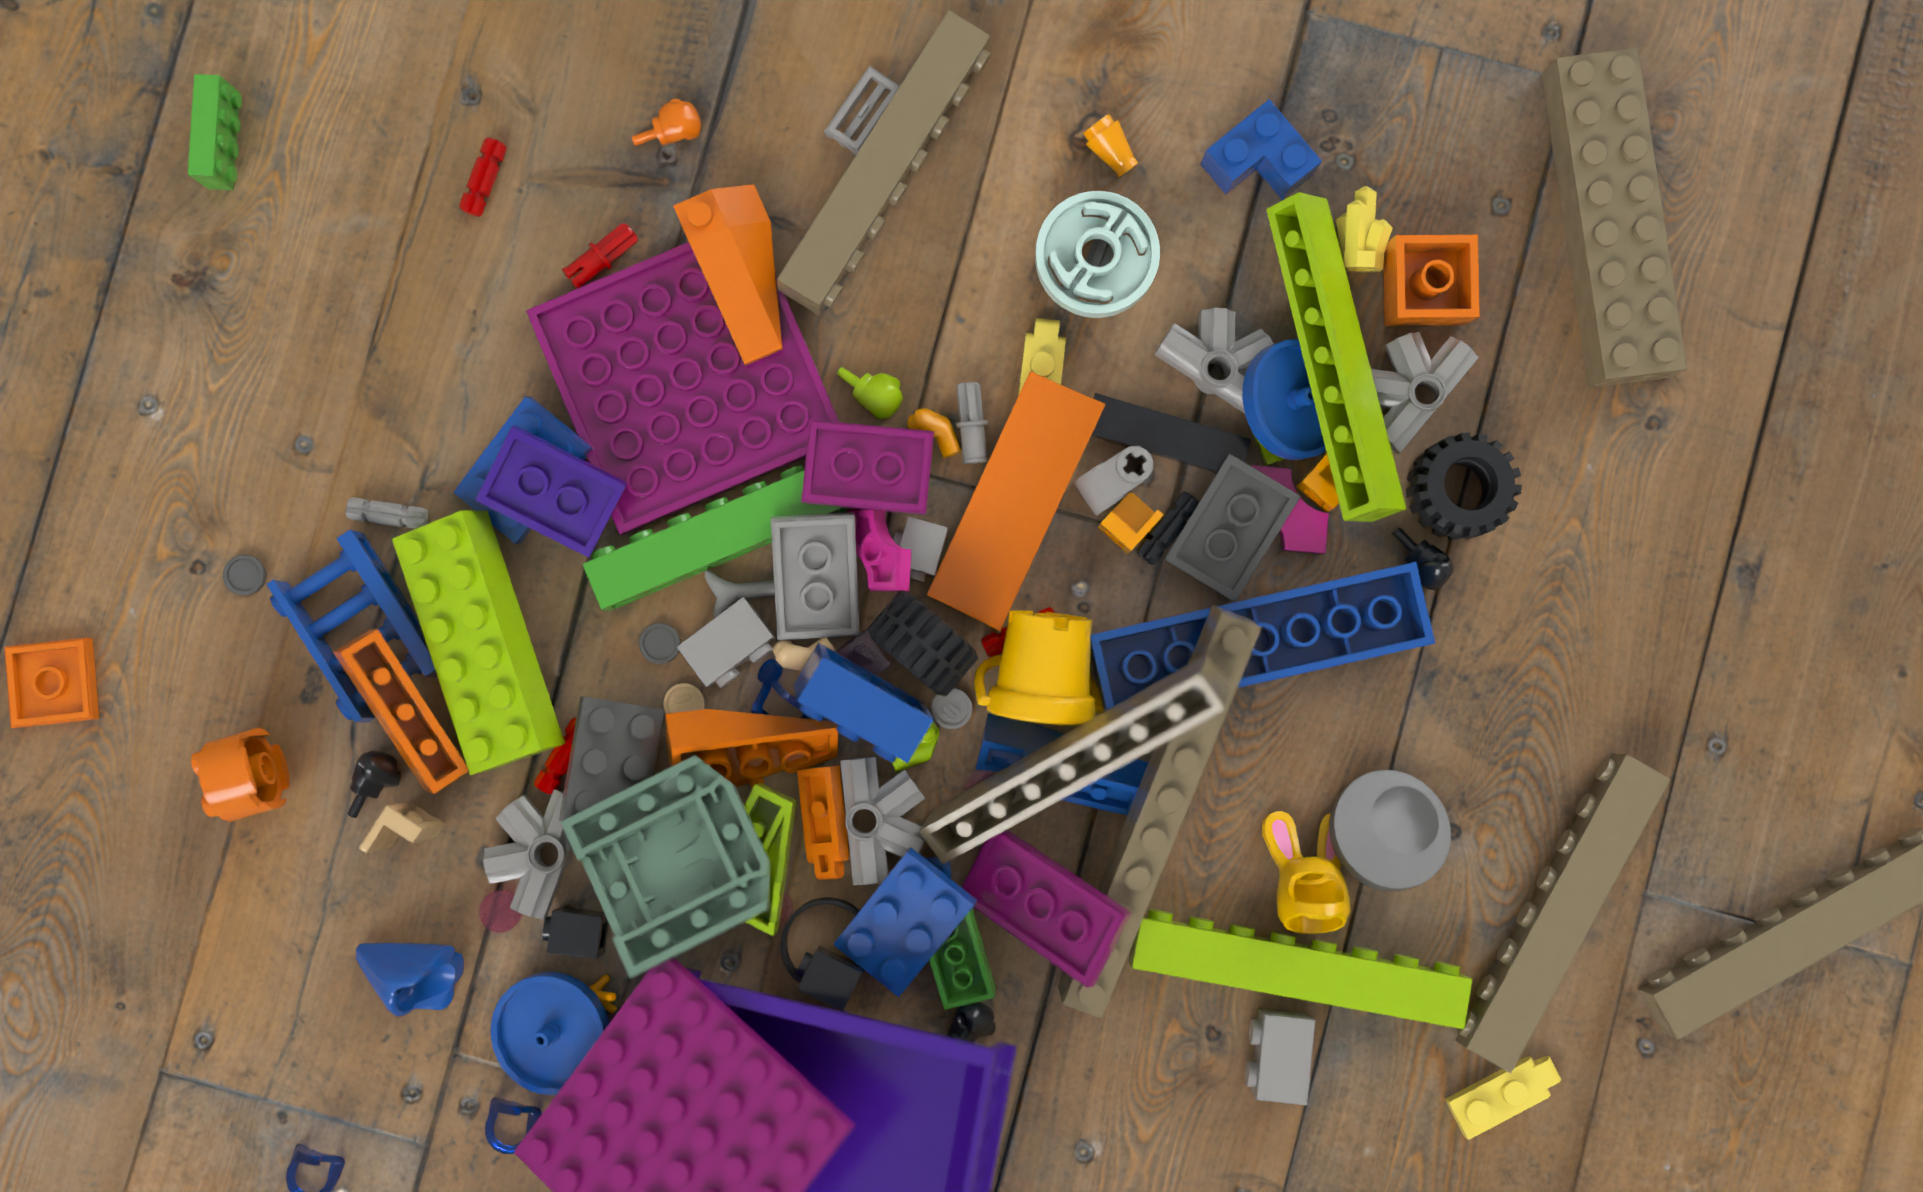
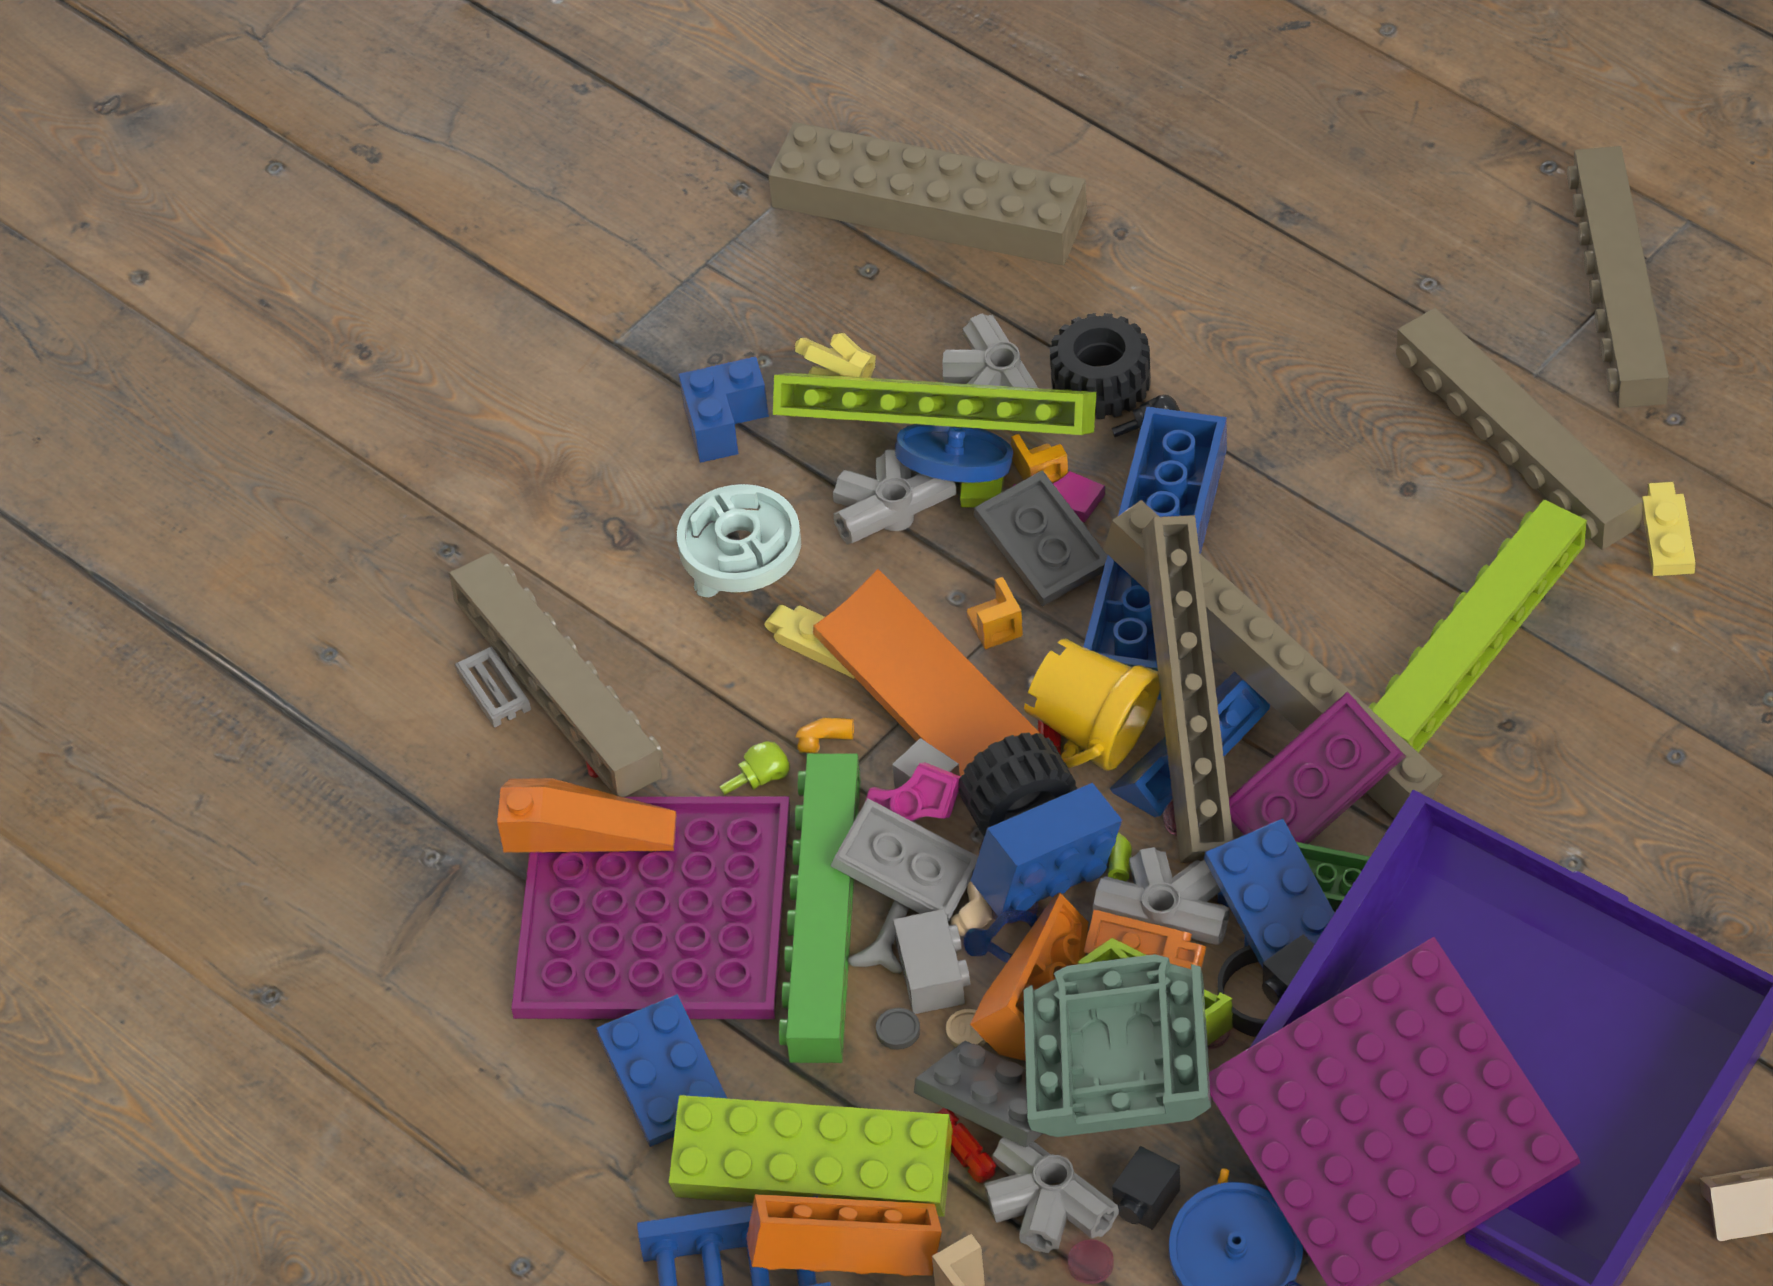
camera: 60 degrees left, 35 degrees down
(214, 132) = (169, 1208): bright green piece -> none
(386, 513) = (635, 1209): light grey axle -> none
(482, 177) = (358, 1007): red axle -> none
(551, 491) = (702, 1030): dark purple plate -> none
(600, 255) = (496, 936): red axle -> none
(675, 122) = (409, 834): orange piece -> none
(867, 467) = (828, 774): magenta tile -> none
(971, 423) = (834, 701): light grey axle -> none
(1109, 482) = (948, 604): light grey piece -> none
(1110, 144) = (642, 511): light orange cone -> none
(1167, 435) = (940, 556): black tile -> none
(1167, 528) = (1030, 610): black axle -> none
(1280, 1056) = (1550, 669): light grey brick -> none
(1309, 889) = (1402, 588): yellow piece -> none
(1390, 831) = (1380, 519): piece -> none
(1431, 280) = (906, 325): orange brick -> none

